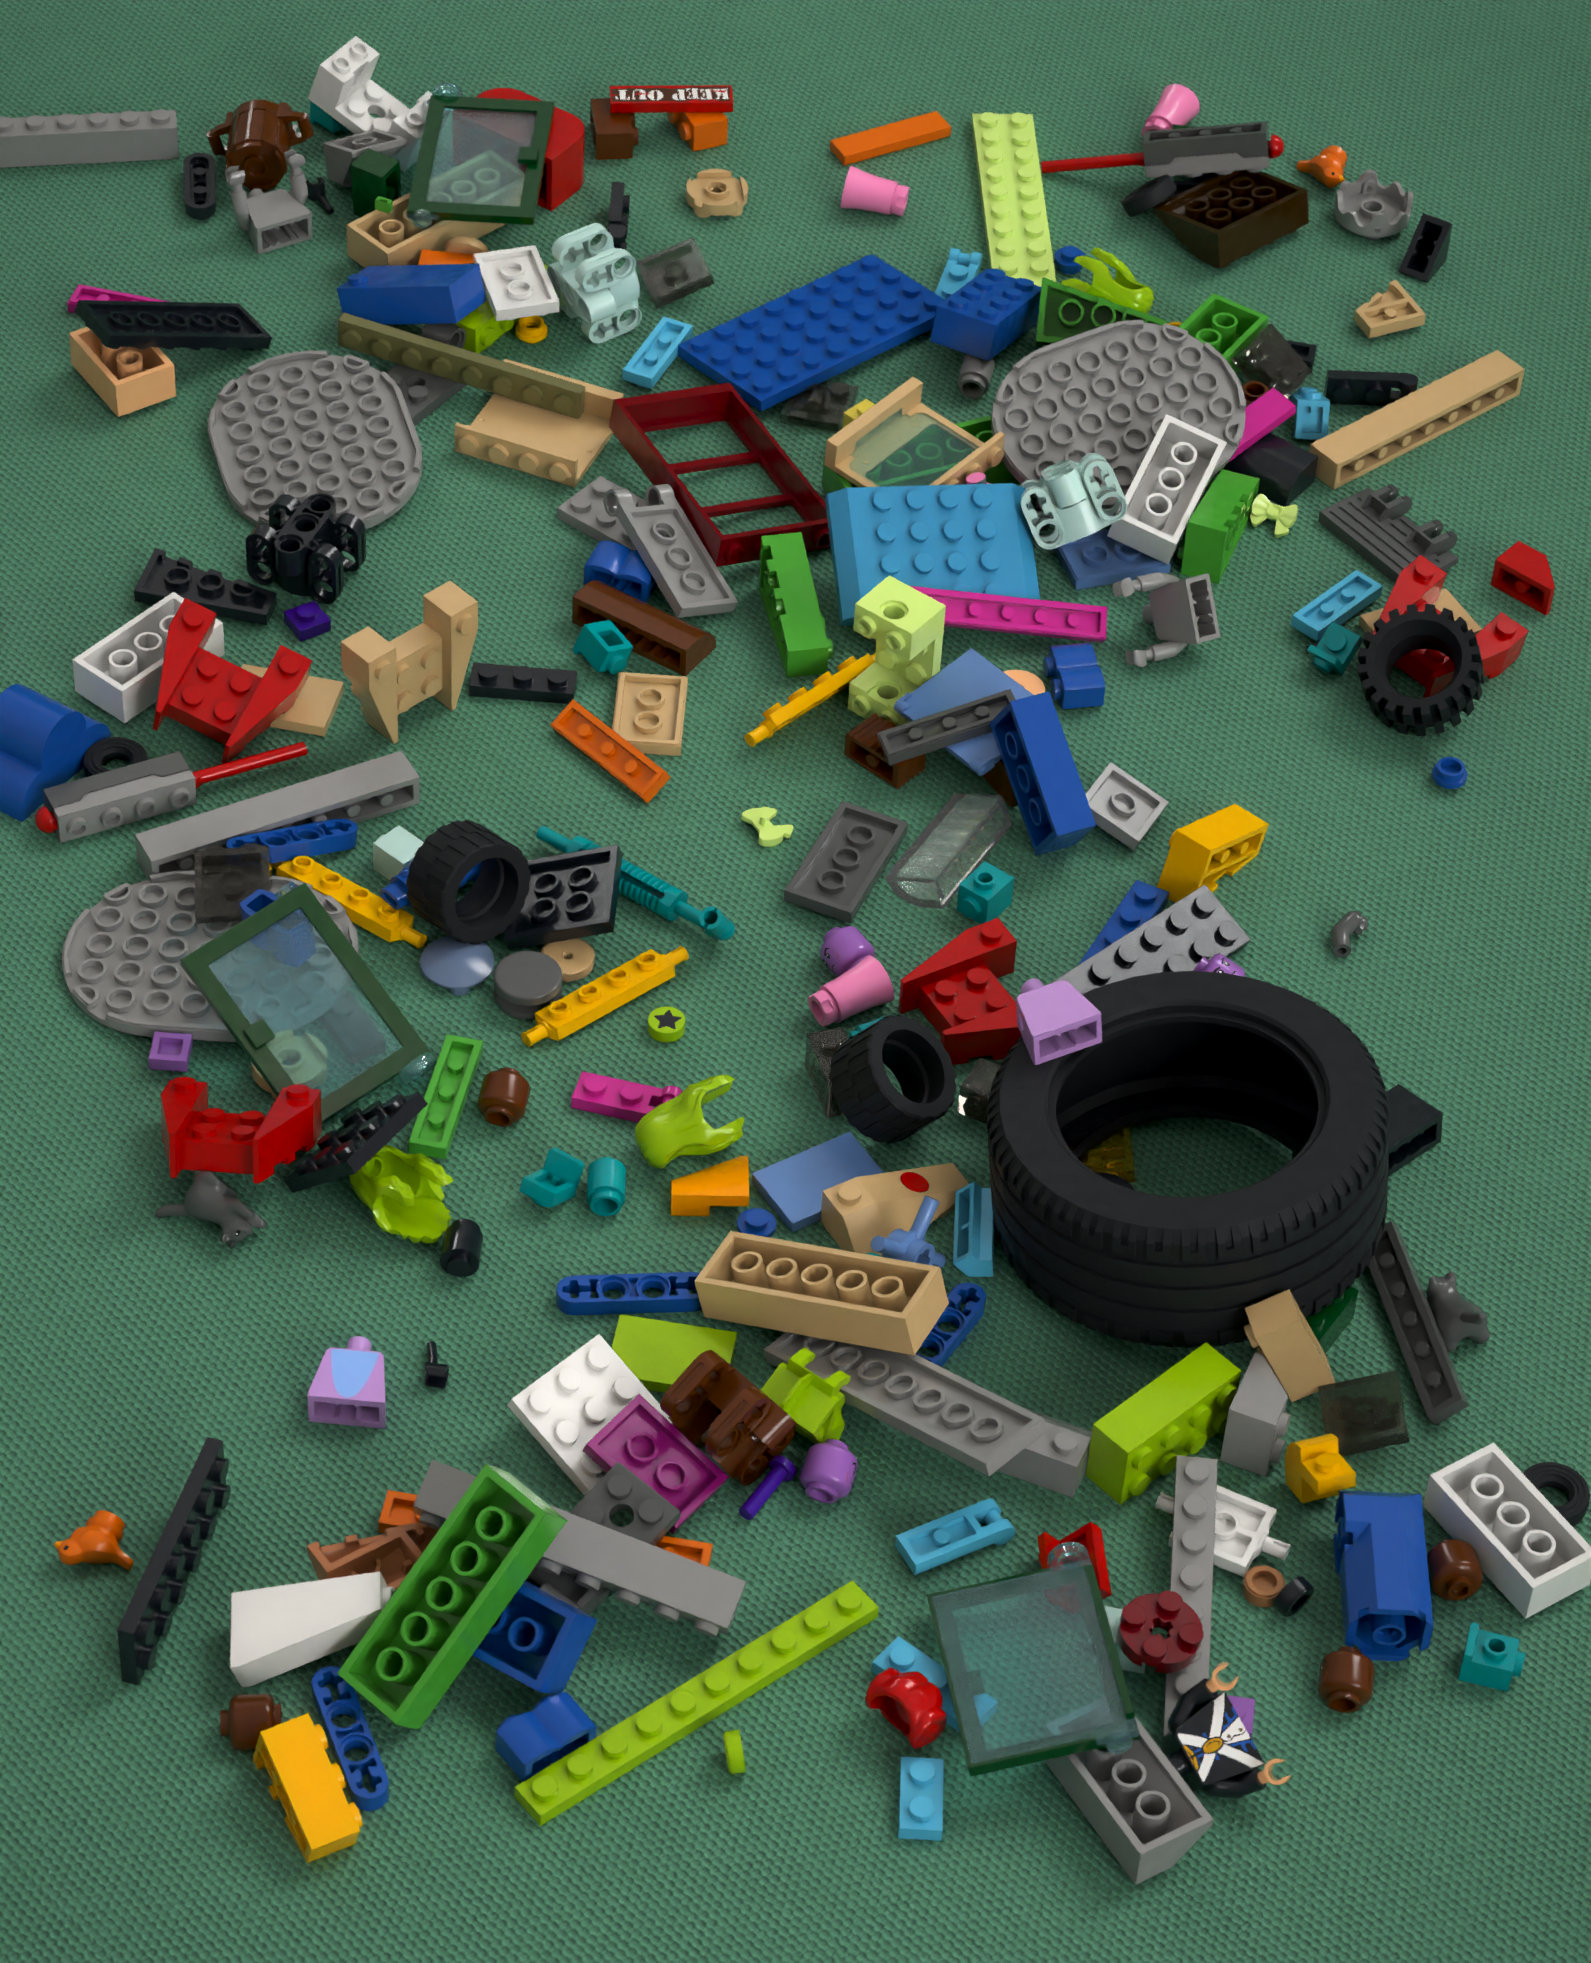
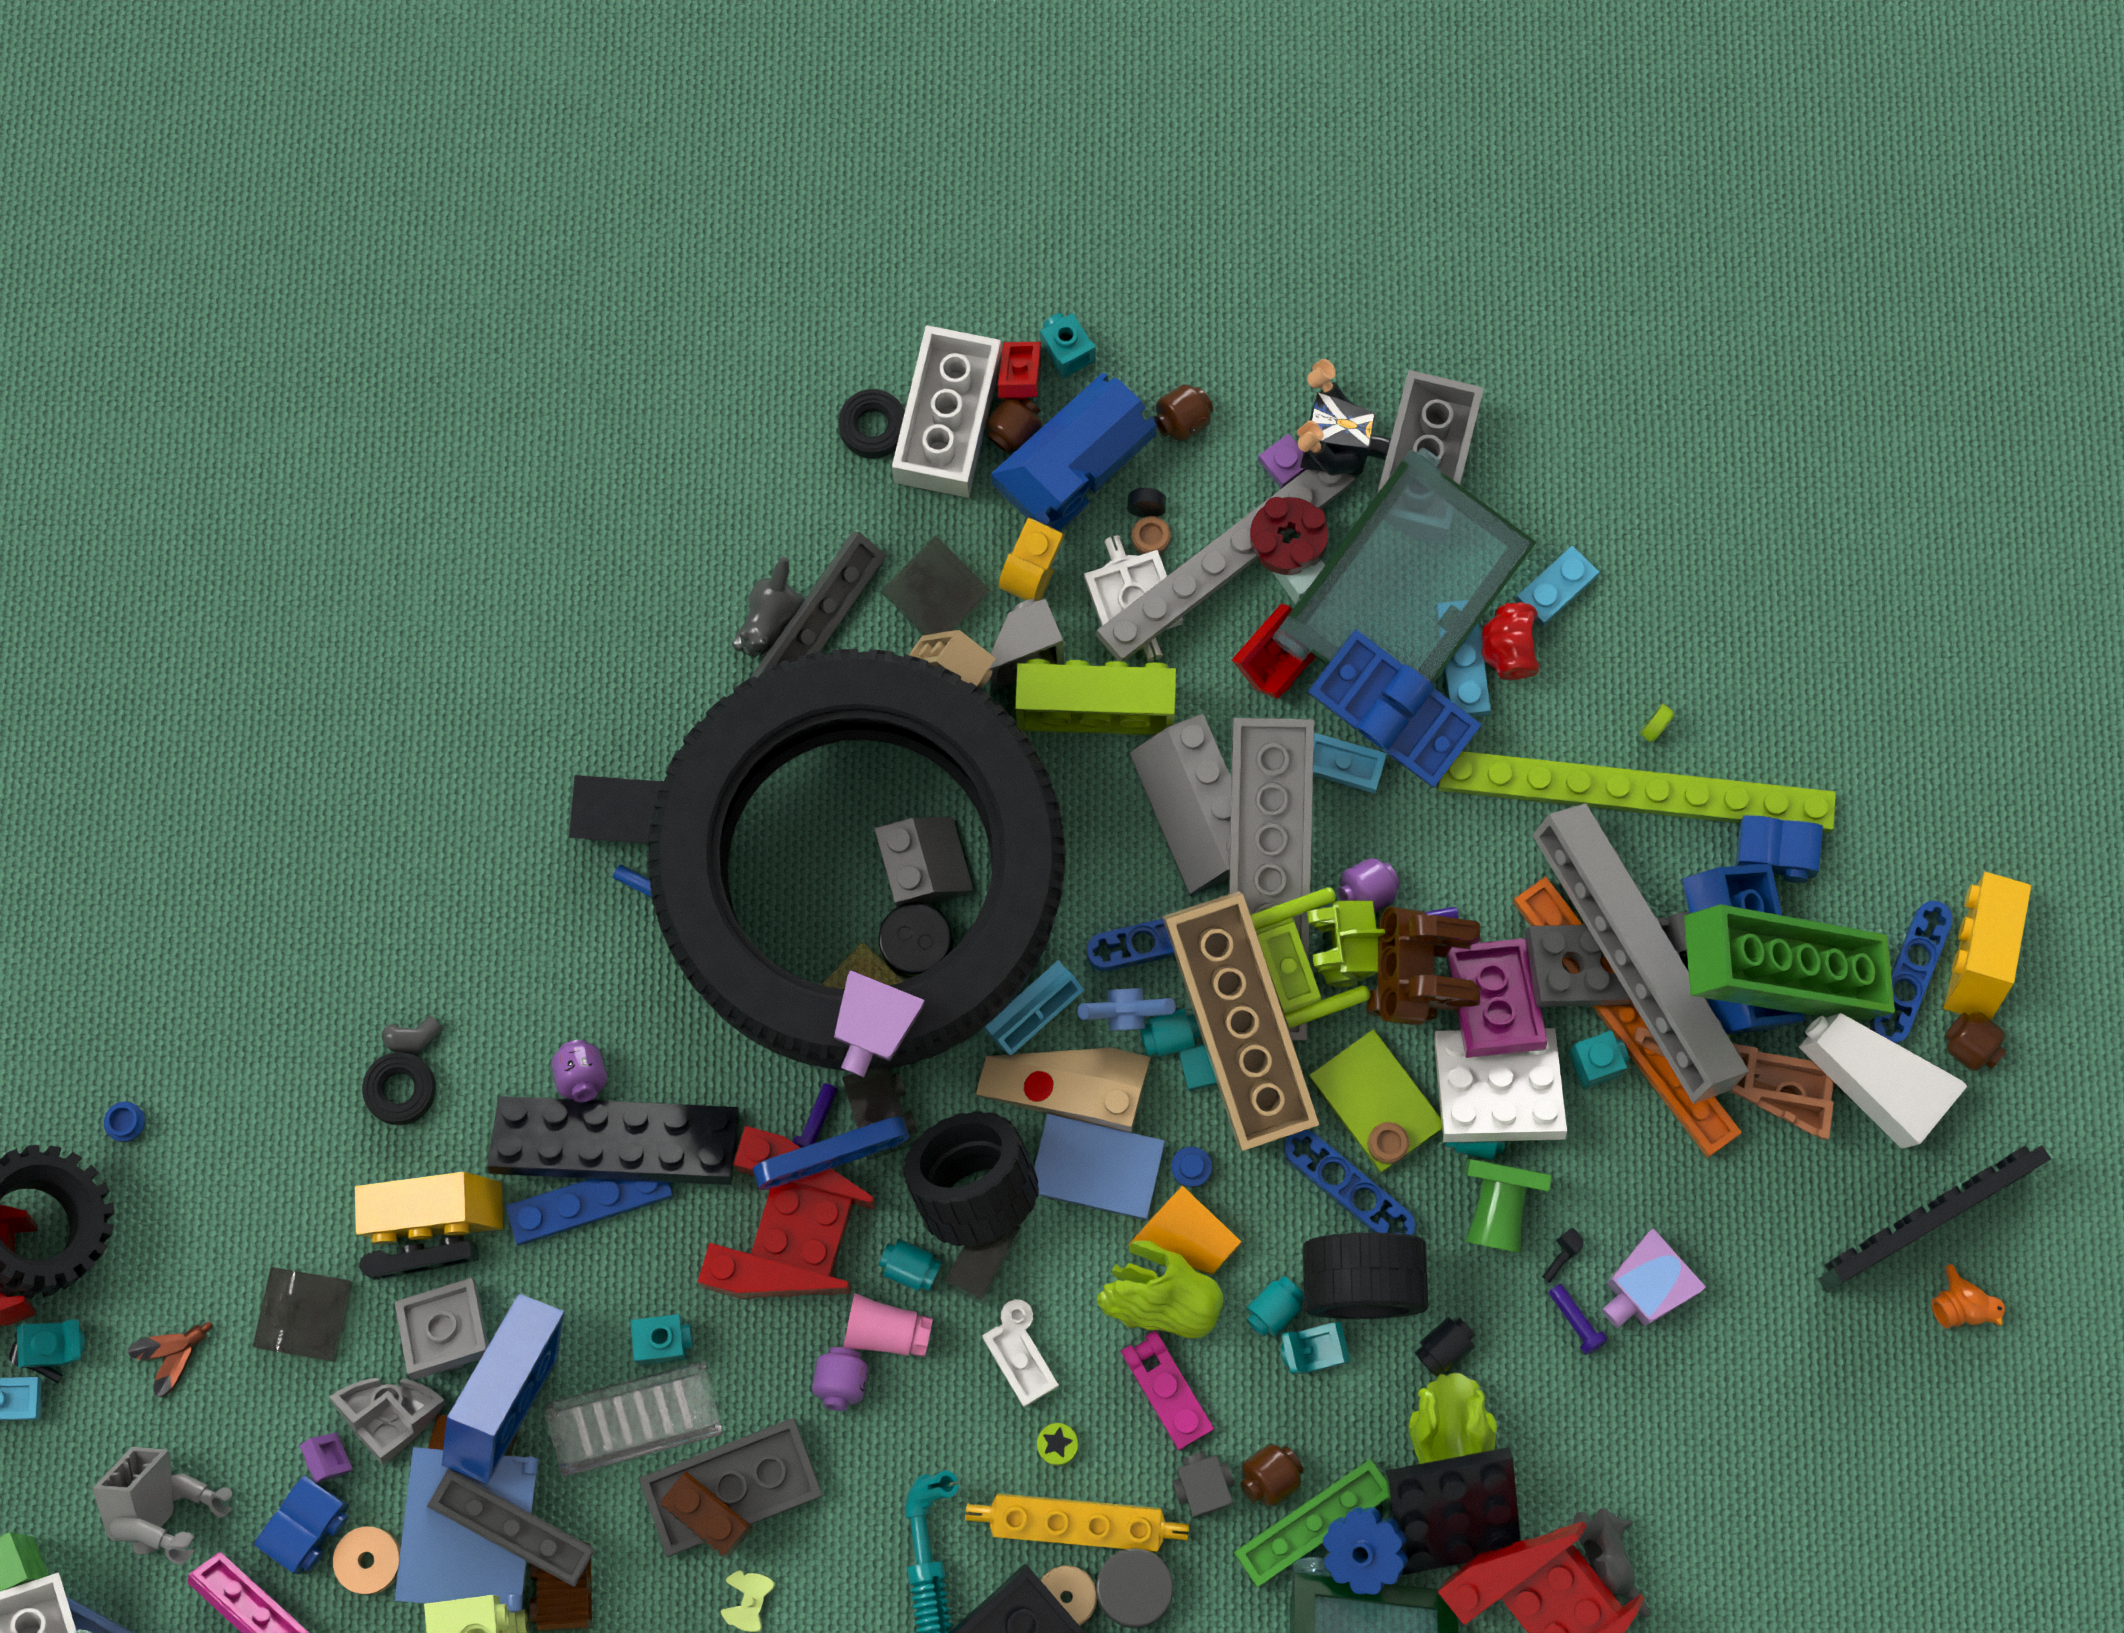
camera: 130 degrees left, 30 degrees up
(360, 1327) = (1591, 1339): none -> dark purple piece
(392, 1078) = (1365, 1550): none -> blue plant
(515, 1347) = (1501, 1203): none -> bright green plant
(542, 1477) = (1599, 1059): none -> teal brick
(543, 1061) = (1203, 1484): none -> dark grey brick
(561, 1214) = (1365, 1275): none -> black tyre
(634, 1327) = (1388, 1143): none -> medium nougat tile
(747, 1045) = (1018, 1354): none -> white hinge
(833, 1353) = (1289, 963): none -> lime plate
(841, 817) = (706, 1515): none -> reddish brown brick
(943, 1577) = (1394, 708): none -> blue plate
(996, 1030) = (831, 1153): none -> blue beam
(1094, 752) = (387, 1414): none -> light grey brick
(1105, 710) = (325, 1457): none -> medium lavender plate
(1196, 809) = (417, 1259): none -> black hinge
(1214, 766) = (302, 1314): none -> clear smoke hinge
(1261, 705) = (176, 1349): none -> copper piece
(1315, 886) = (404, 1112): none -> black tyre
(1497, 1598) = (1019, 370): none -> red plate

